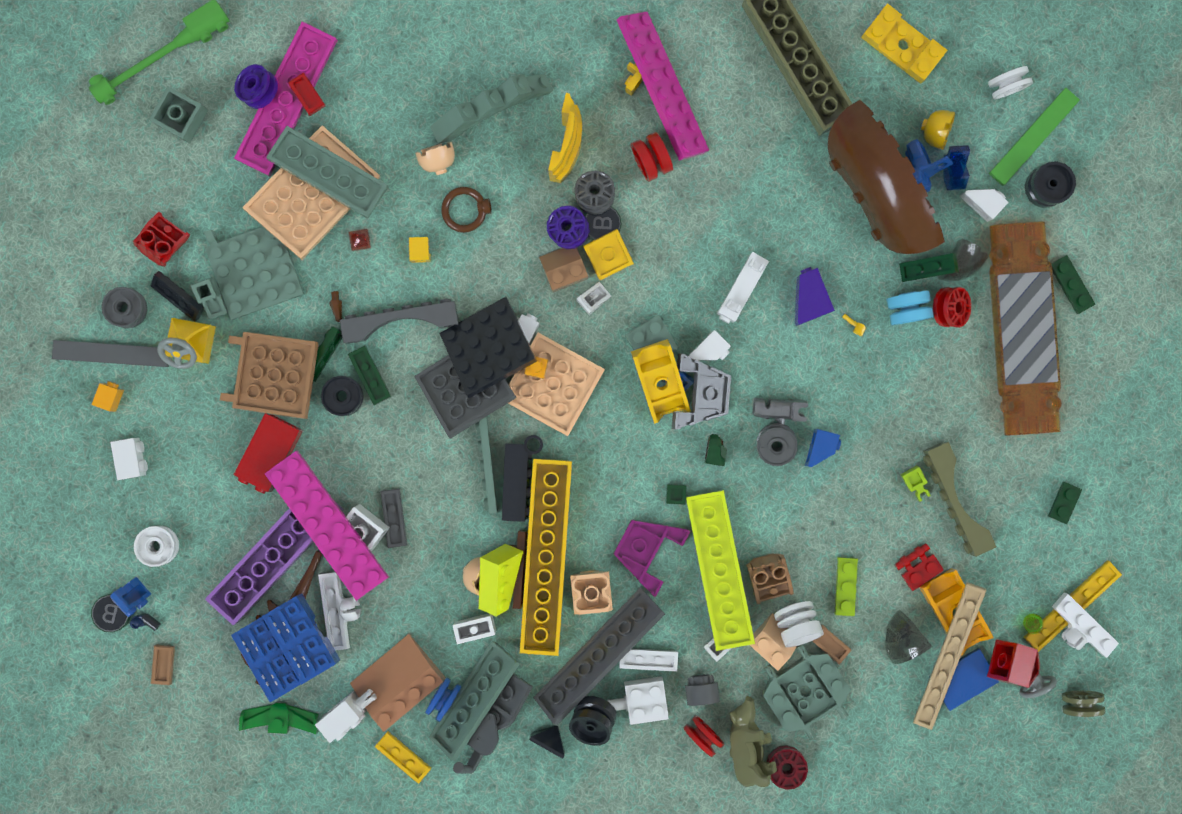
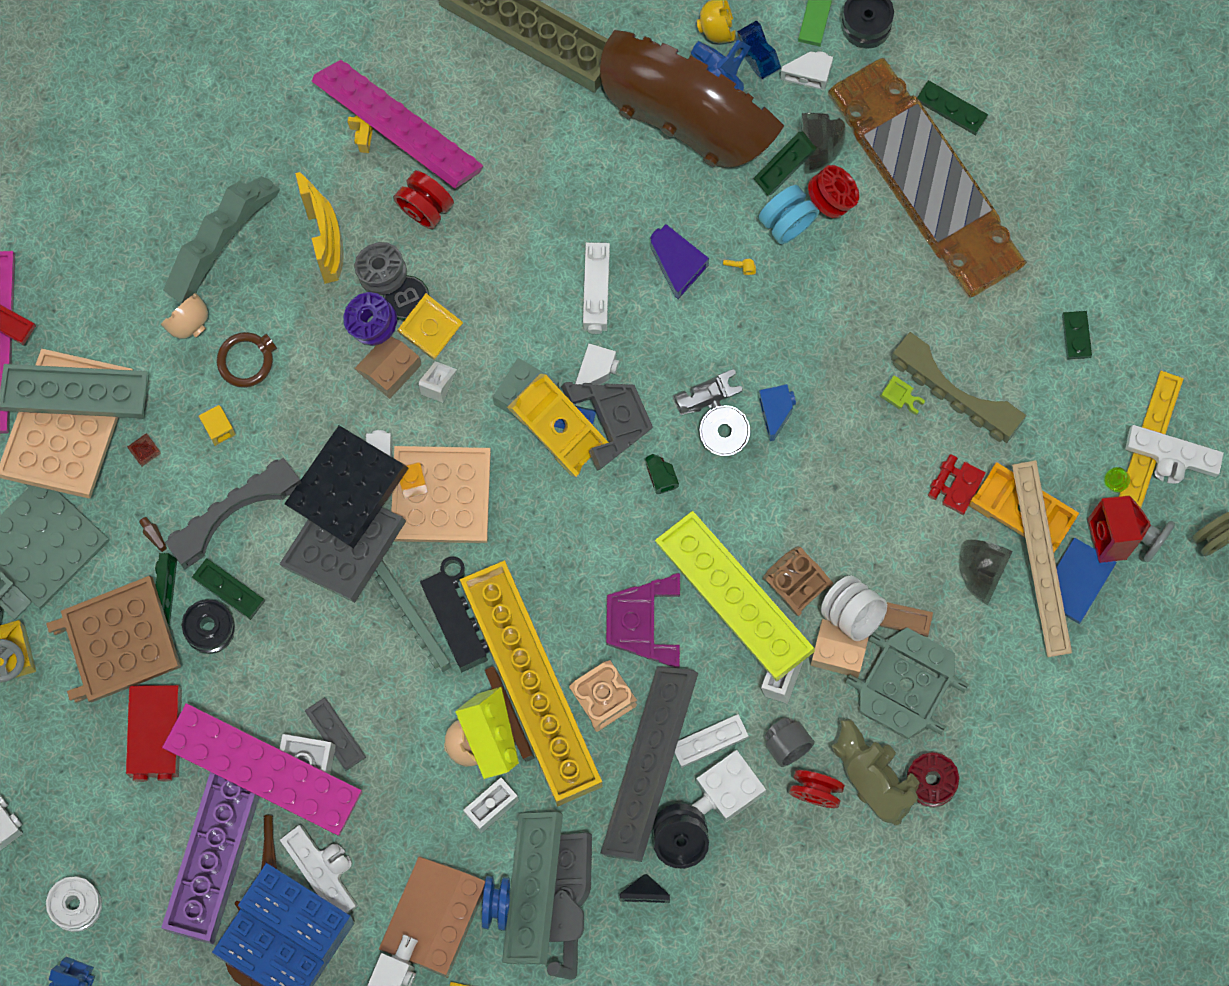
camera: 25 degrees left, 15 degrees down
(676, 494) = (642, 542): dark green plate -> none
(846, 586) = (888, 547): lime plate -> none

